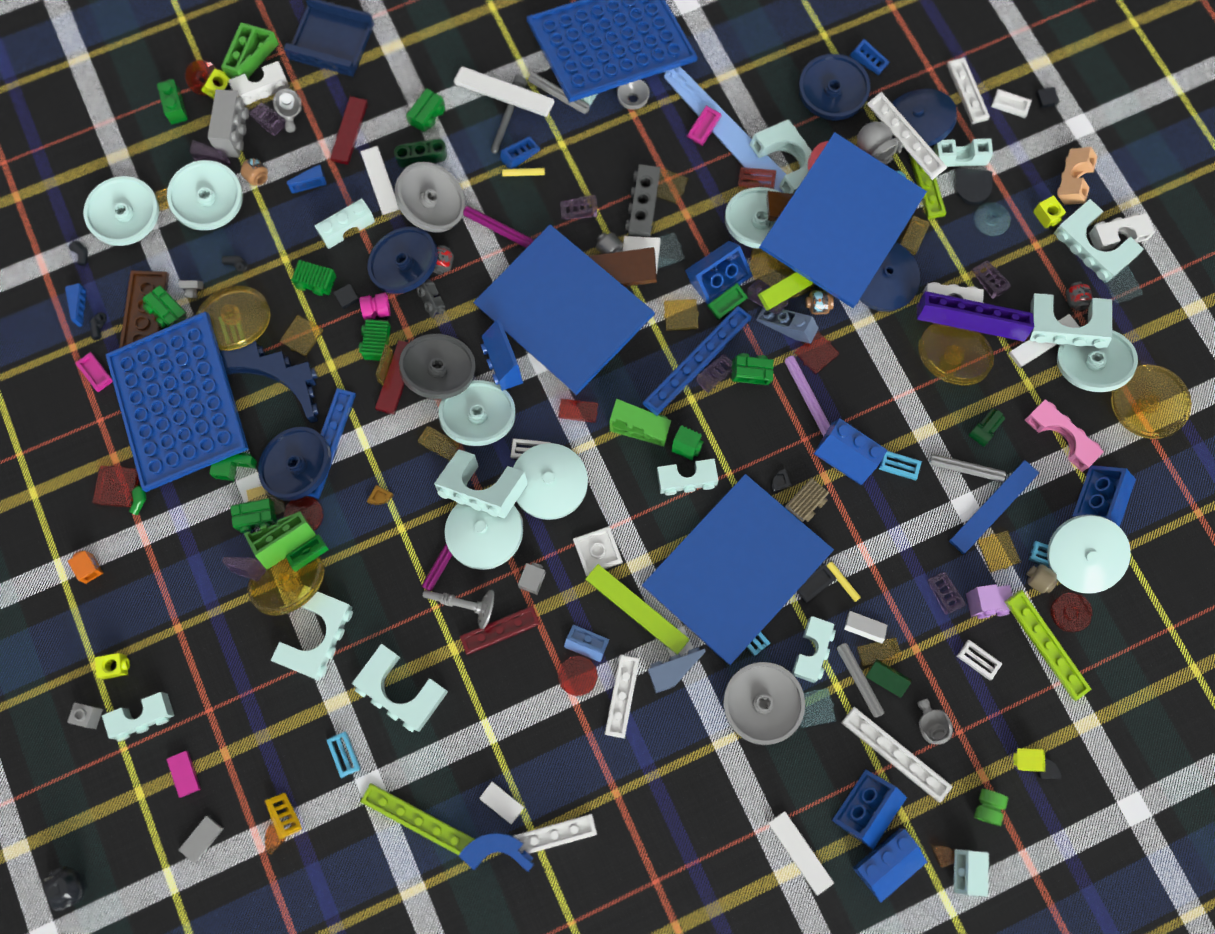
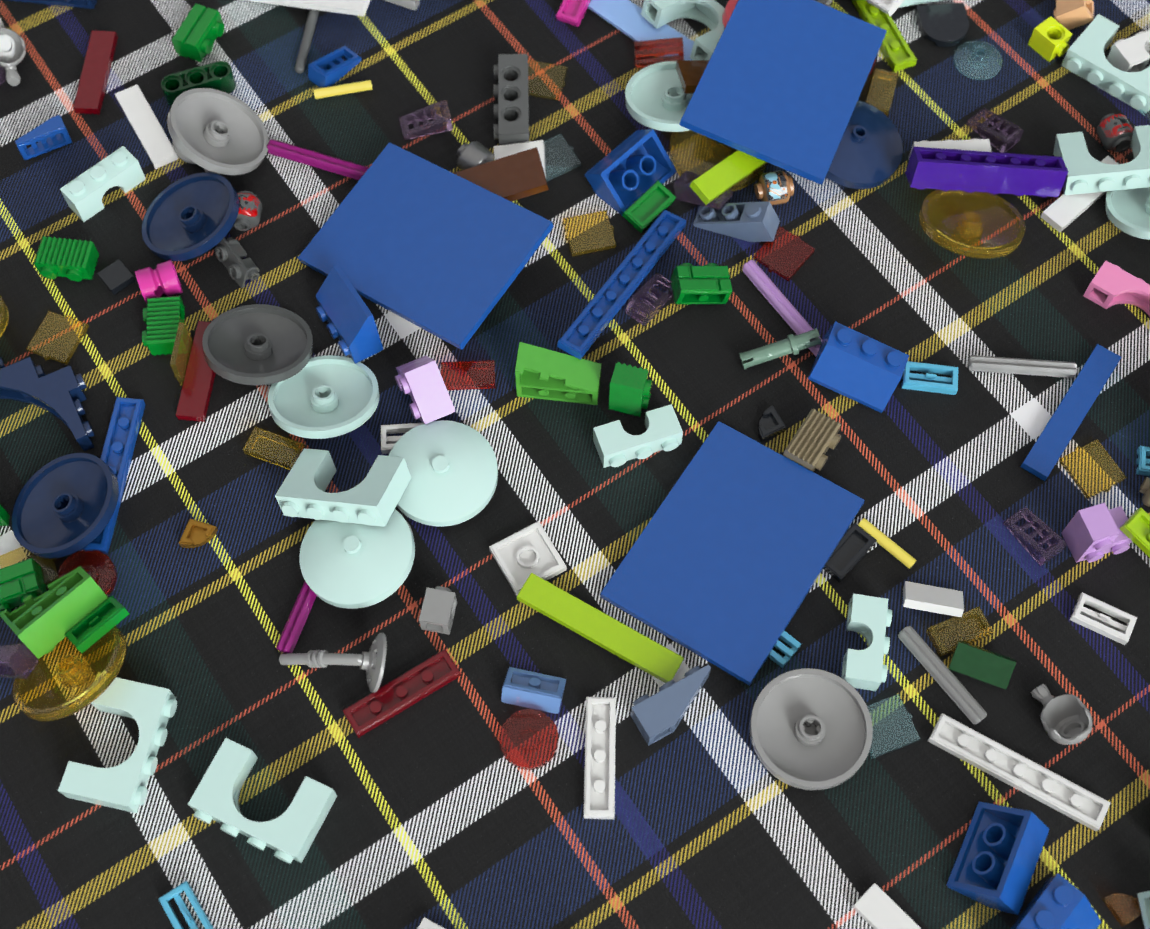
camera: 10 degrees left, 10 degrees down
(546, 415) = (427, 389): none -> brick
(798, 427) = (791, 344): none -> sand green pin
(985, 430) = (1034, 313): dark green piece -> none

